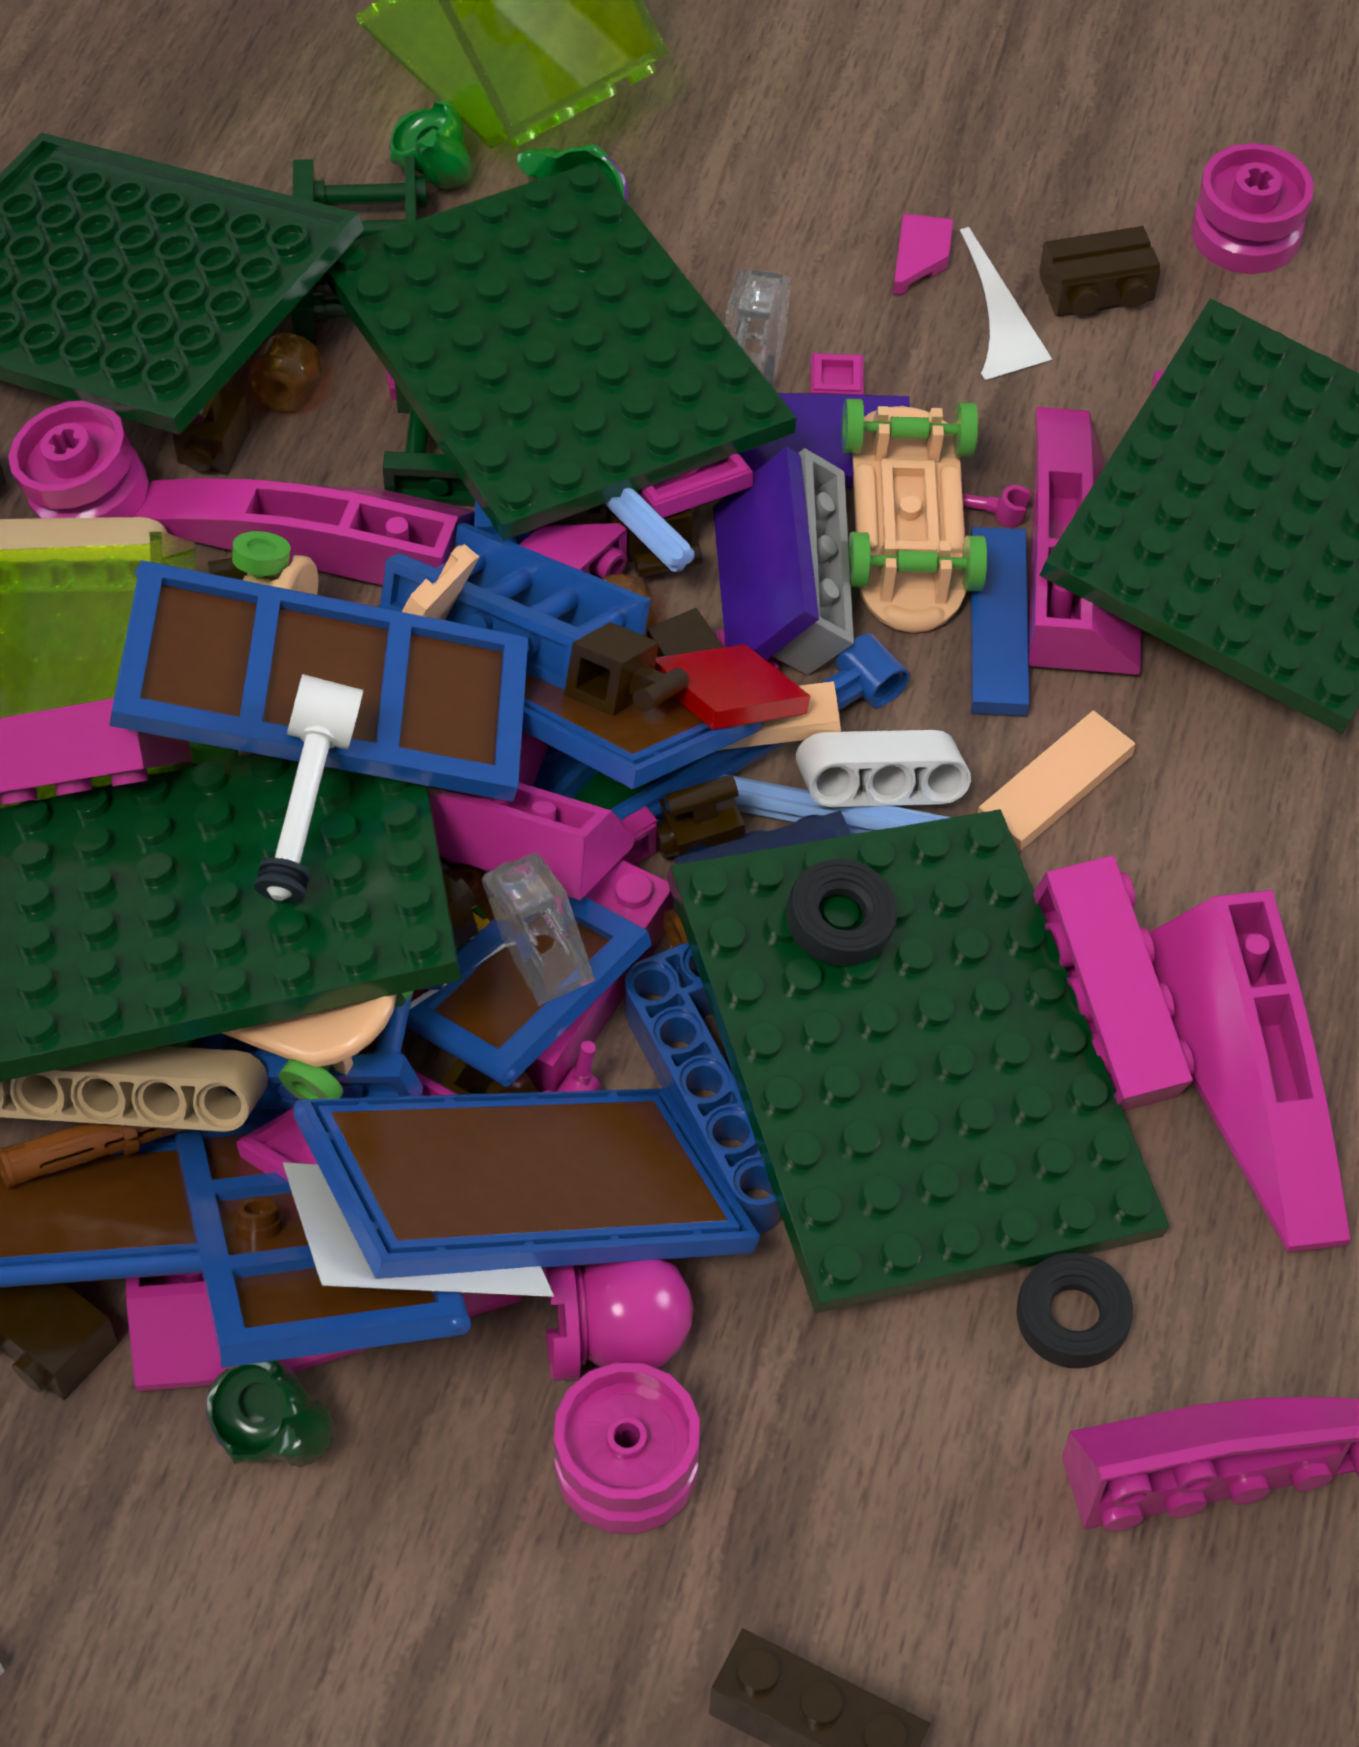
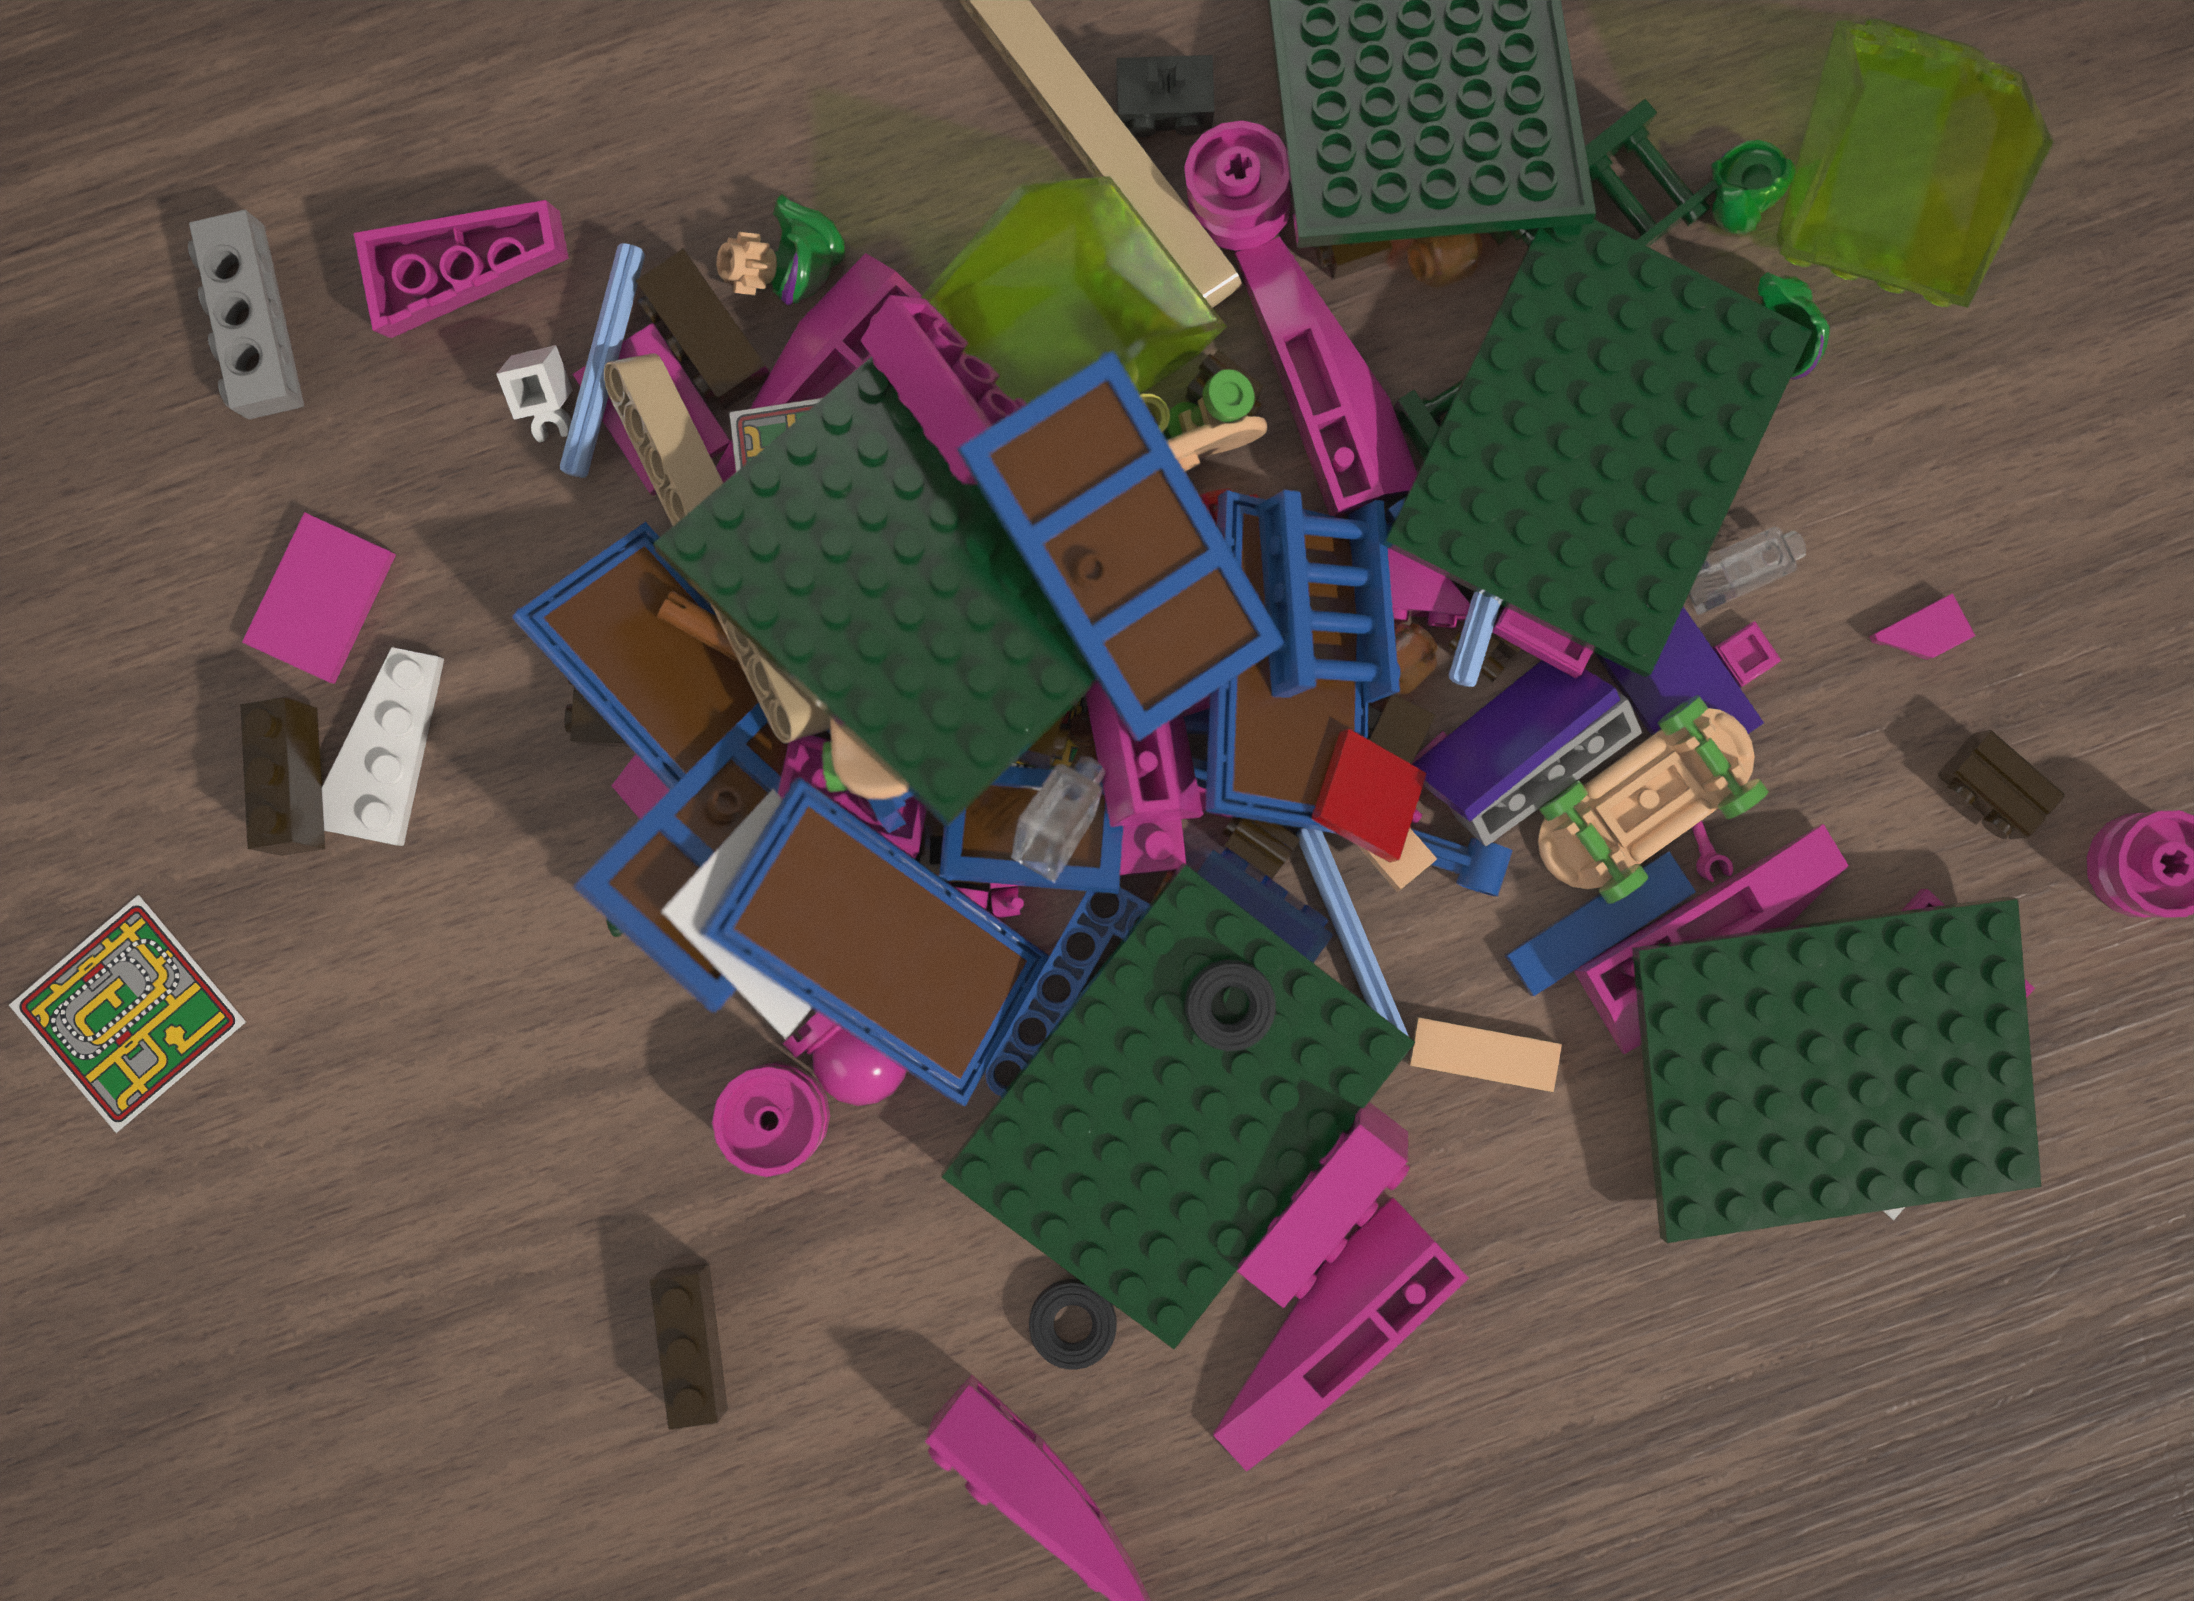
camera: 55 degrees right, 30 degrees up
(323, 720) = (1066, 588): white piece -> none
(438, 598) = (1271, 554): light nougat tile -> none
(617, 670) = (1307, 721): dark brown brick -> none
(918, 769) = (1395, 936): white beam -> none
(1012, 338) = (1889, 757): white sticker -> none

